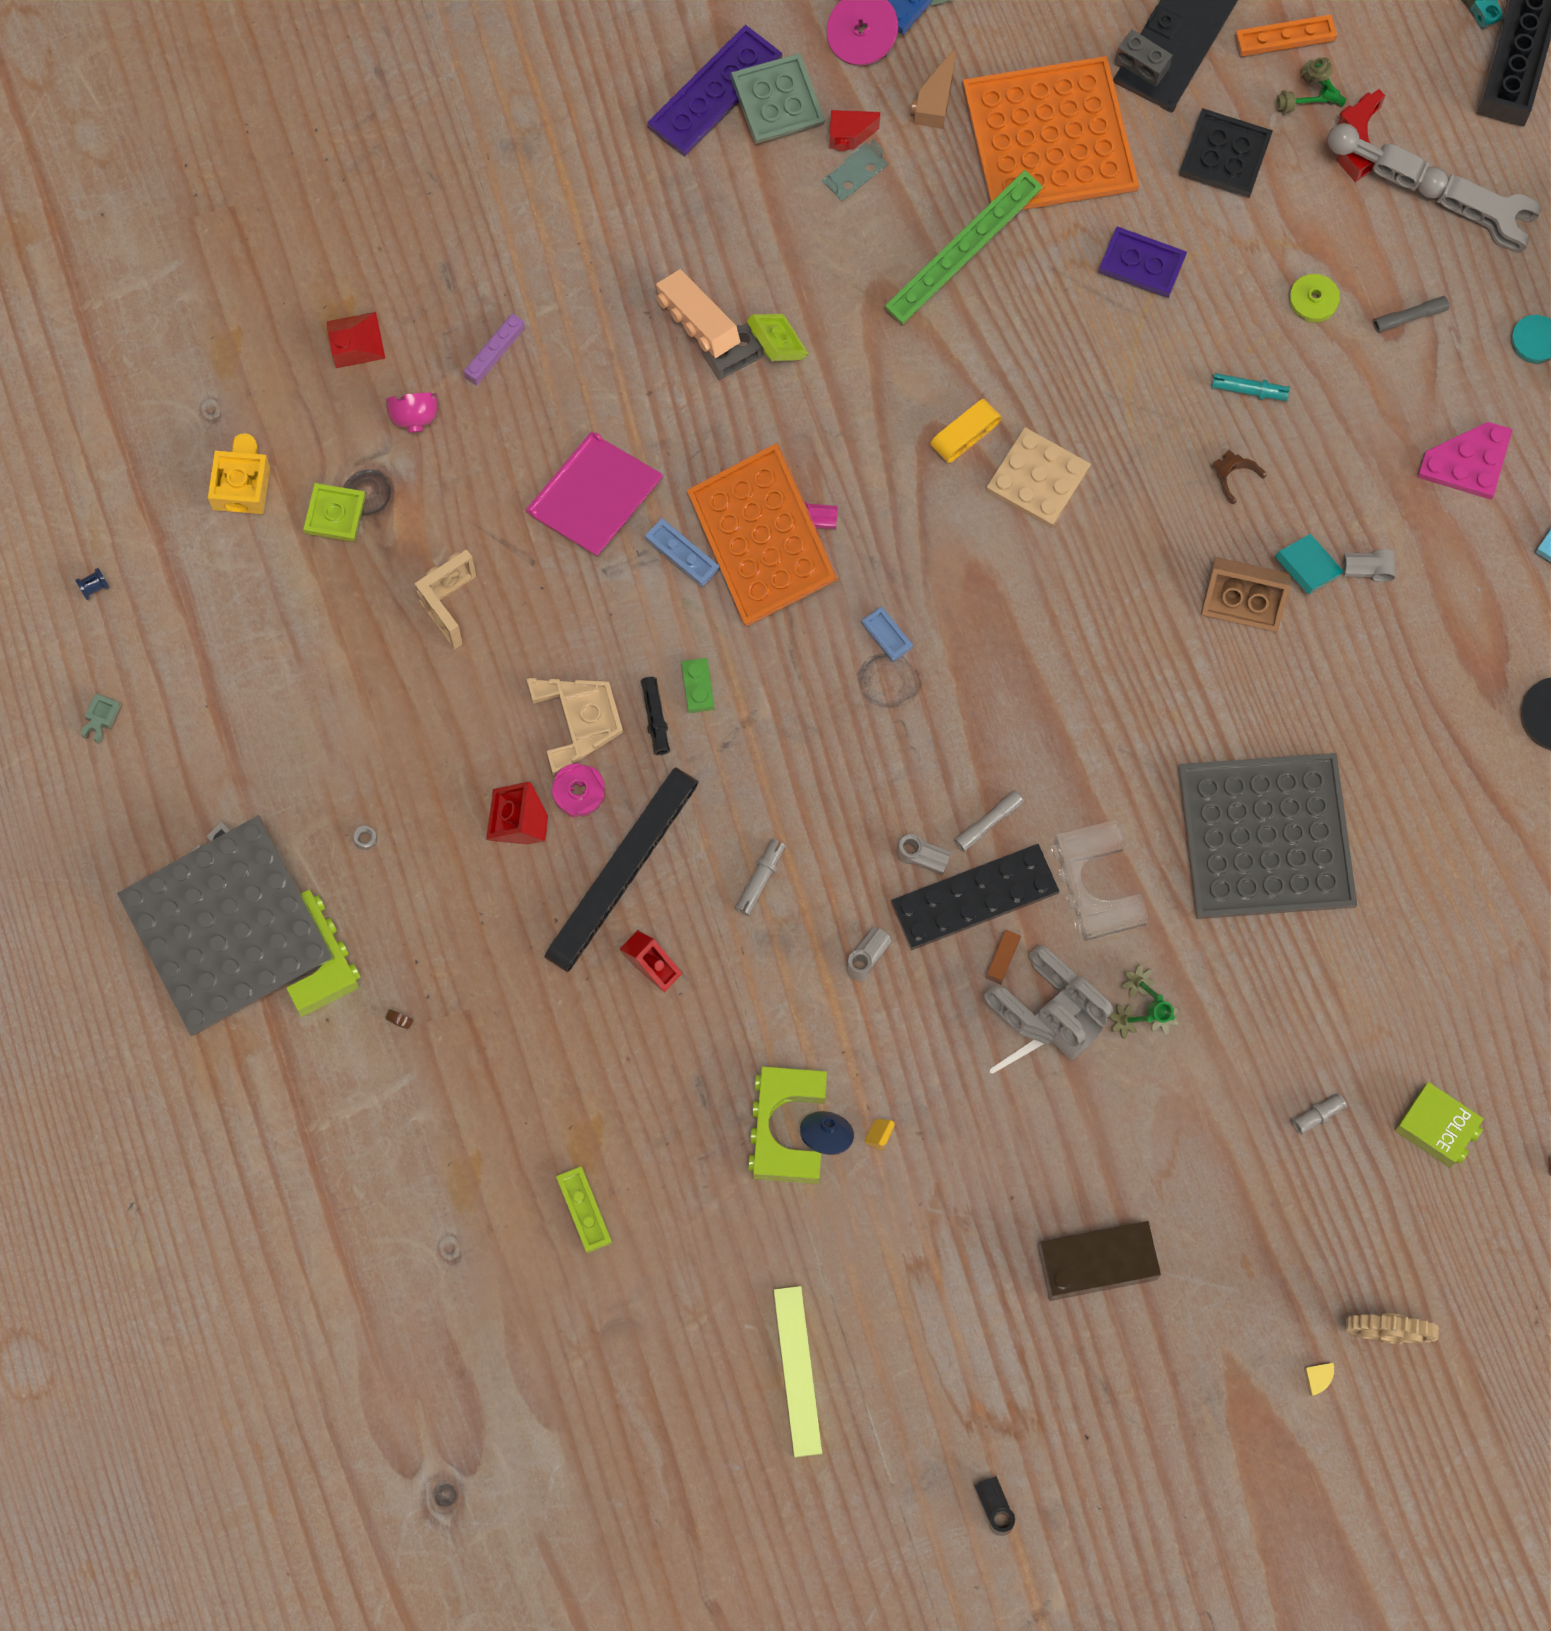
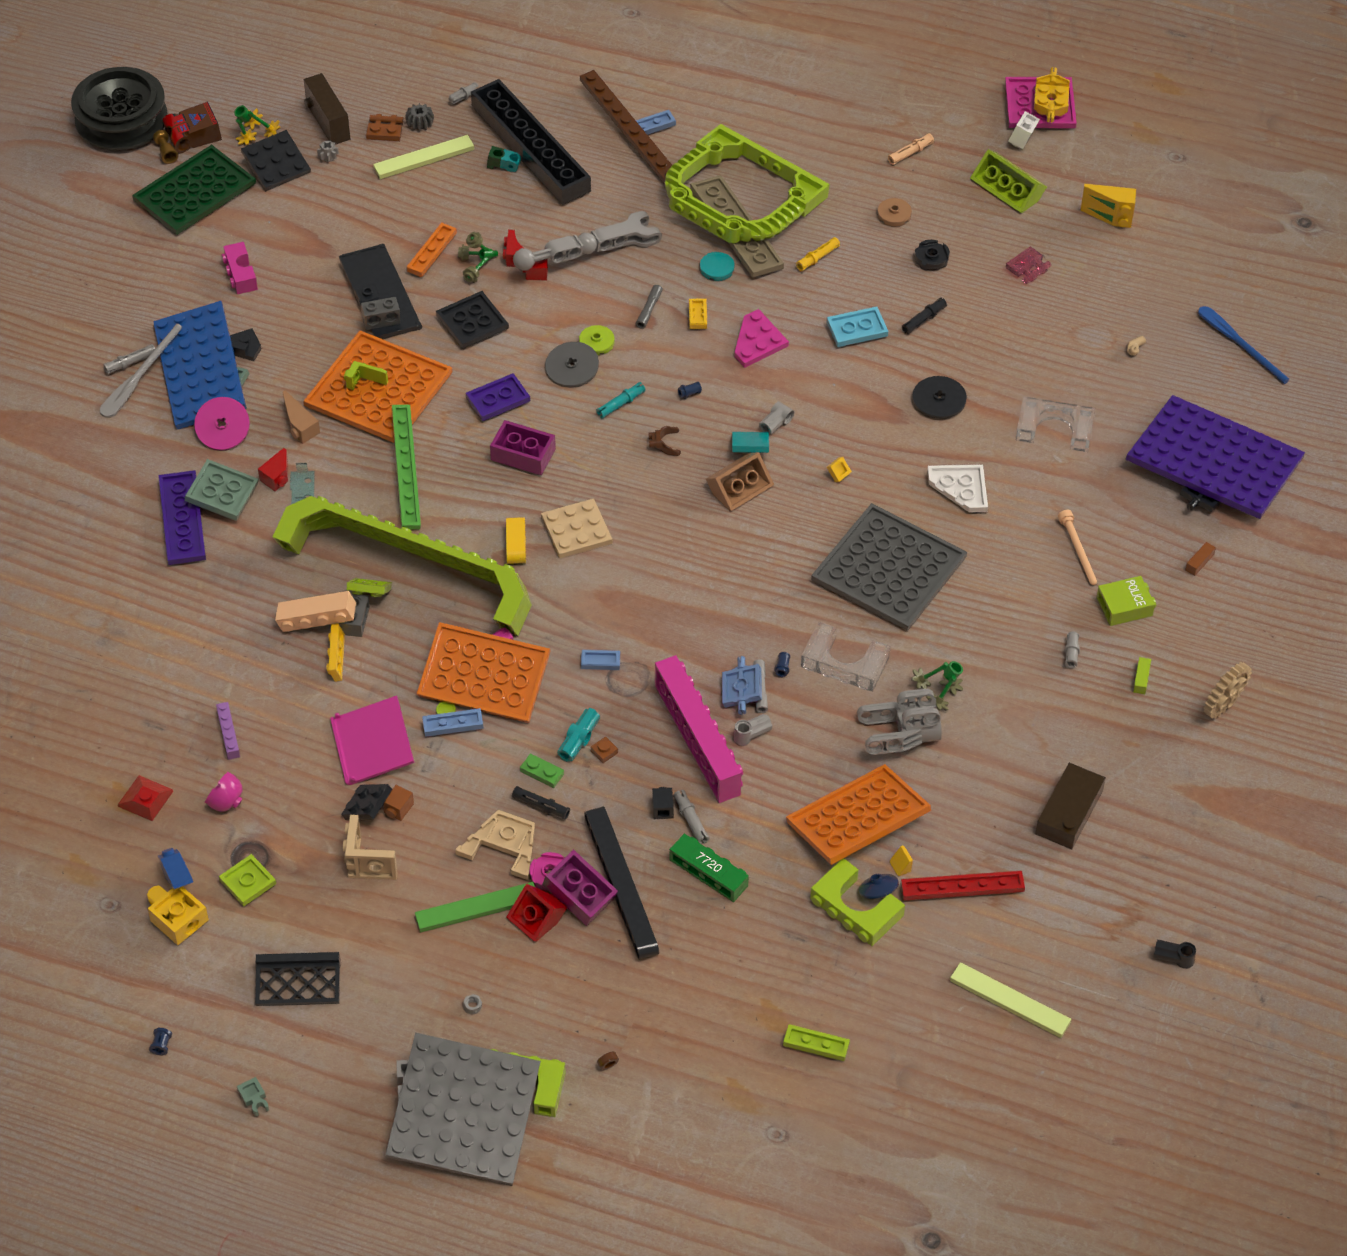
camera: 50 degrees left, 20 degrees down
(273, 633) = (299, 962): none -> black fence
(280, 438) = (174, 868): none -> blue slope
(477, 748) = (468, 908): none -> bright green tile
(512, 549) = (367, 801): none -> black plate
(538, 579) = (398, 803): none -> dark orange brick
(572, 836) = (580, 887): none -> magenta brick
(651, 960) = (691, 904): red slope -> none
(671, 373) = (336, 652): none -> yellow plate
(695, 533) = (444, 707): none -> lime piece
(710, 943) = (709, 867): none -> green brick
(753, 835) = (662, 803): none -> black brick
(769, 687) = (578, 734): none -> teal piece
(775, 726) = (604, 749): none -> dark orange plate
(868, 952) = (787, 794): light grey piece -> none
(869, 801) = (698, 729): none -> dark pink brick
(888, 474) = (319, 514): none -> lime arch
(898, 1046) = (858, 814): none -> orange plate
(901, 1219) = (962, 885): none -> red plate
(968, 802) = (741, 685): none -> medium blue plate
(974, 896) = (799, 724): black plate -> none
(1003, 957) = (848, 733): dark orange piece -> none
(1018, 1054) = (912, 765): white sticker -> none
(1035, 823) = (782, 665): none -> dark blue pin
(1041, 98) = (364, 371): none -> lime bracket
(1091, 341) = (522, 447): none -> magenta brick
(1264, 316) = (581, 355): none -> dark grey piece
(1319, 1377) = (1224, 752): light yellow tile -> none
(1329, 445) = (685, 391): none -> dark blue pin
(1349, 1215) = (1142, 675): none -> lime piece
(1355, 684) = (839, 469): none -> yellow plate
(1446, 371) = (698, 313): none -> yellow plate
(1450, 829) = (961, 484): none -> white plate
(1502, 979) = (1066, 519): none -> light nougat piece

